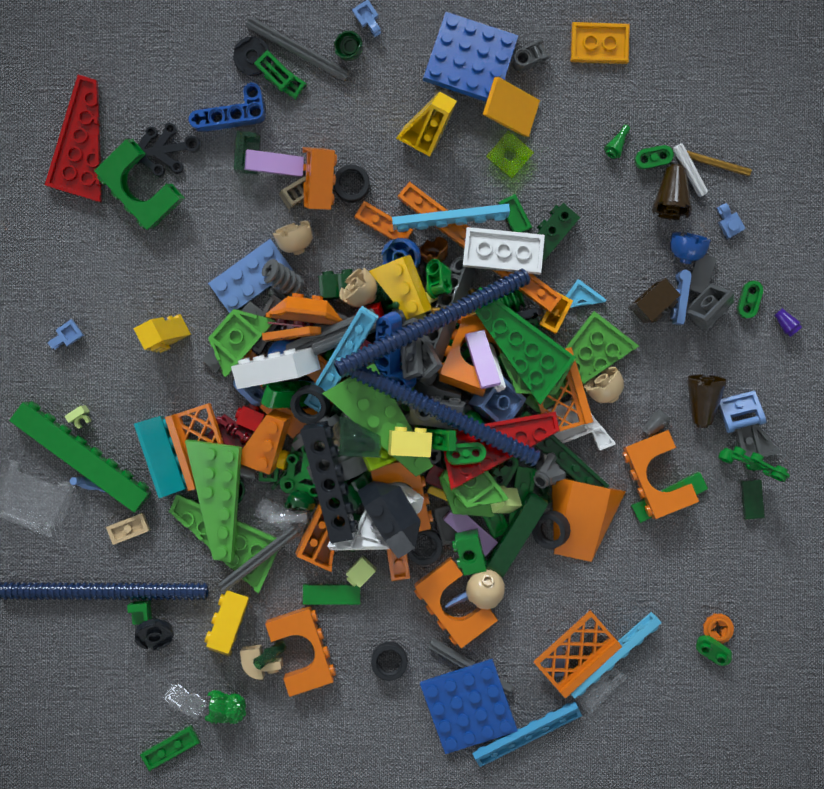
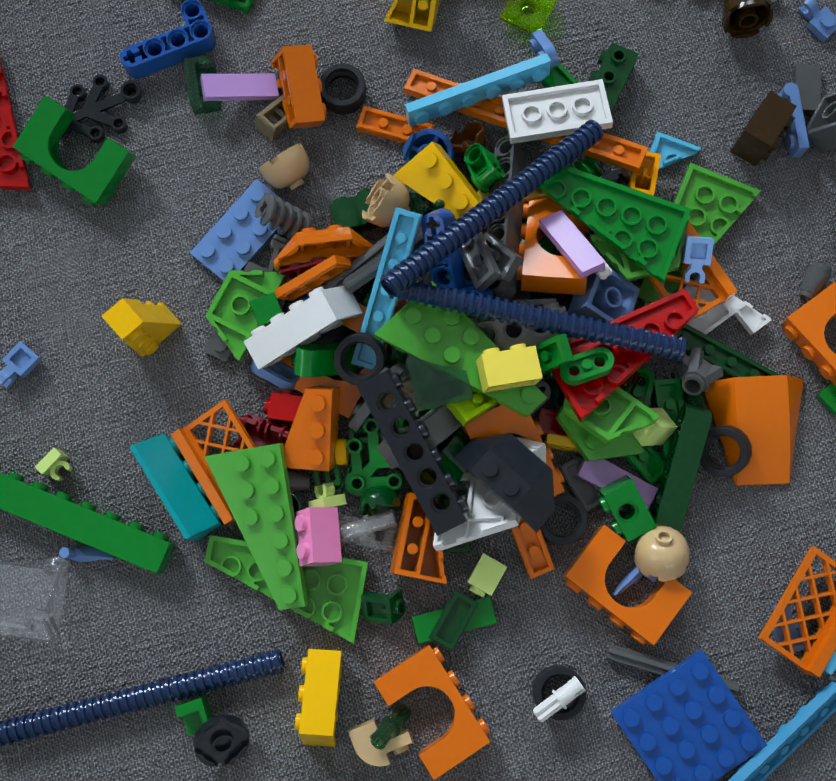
camera: 20 degrees left, 10 degrees down
(128, 528) = (153, 600): tan plate -> none
(251, 517) = (318, 536): none -> bright pink brick
(252, 346) = (265, 308): none -> green tile
(259, 558) = (342, 593): dark grey axle -> none
(263, 490) = (326, 497): none -> yellowish green tile
(284, 575) = (383, 607): none -> dark green bracket
(330, 595) = (453, 620): none -> dark green tile
(386, 667) = (559, 699): none -> white axle
(509, 189) = (541, 45): none -> medium blue plate
(571, 388) = (697, 253): none -> light blue plate
(606, 386) = (737, 248): tan cylinder -> none
(689, 247) = (782, 57): blue cylinder -> none

